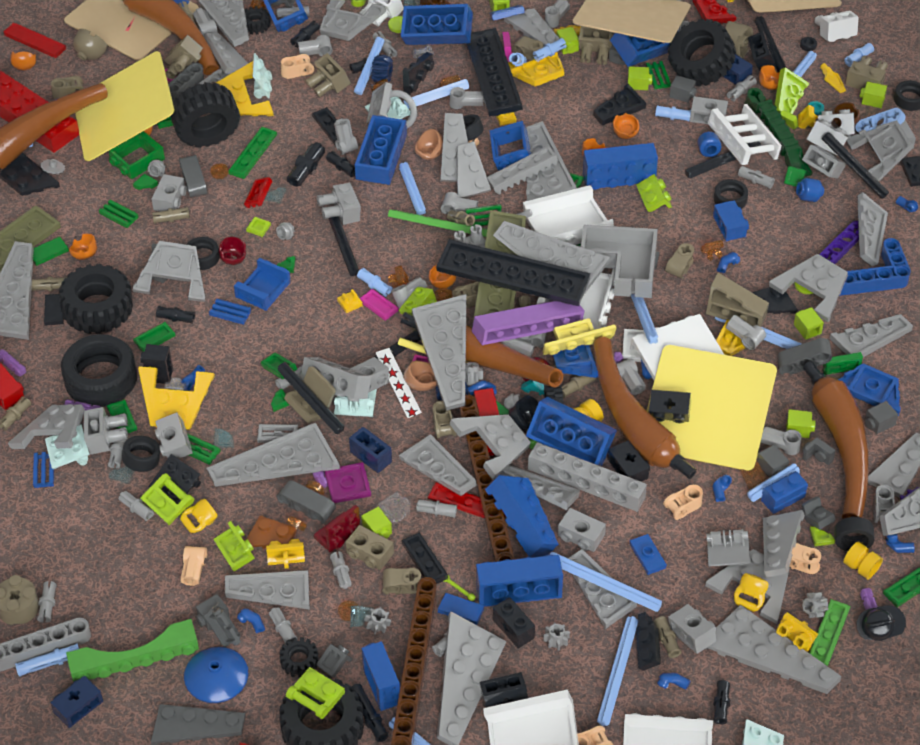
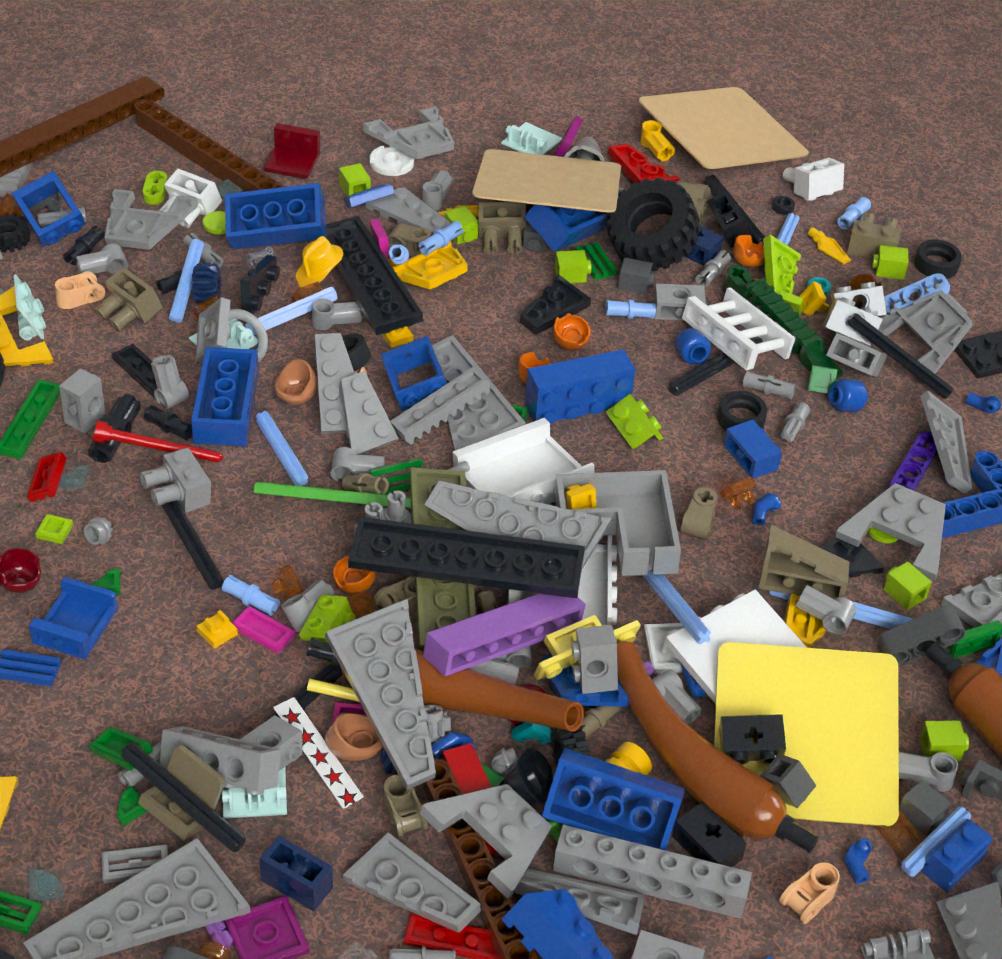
camera: 15 degrees left, 5 degrees down
(287, 143) = (82, 400): none -> light grey brick
(298, 167) = (104, 432): none -> red piece
(460, 59) = (318, 260): none -> yellow piece
(580, 345) = (596, 659): none -> light grey brick
(597, 241) = (581, 497): none -> yellow tile
(686, 434) = (789, 779): none -> dark grey brick
(767, 204) = (795, 421): none -> light grey axle

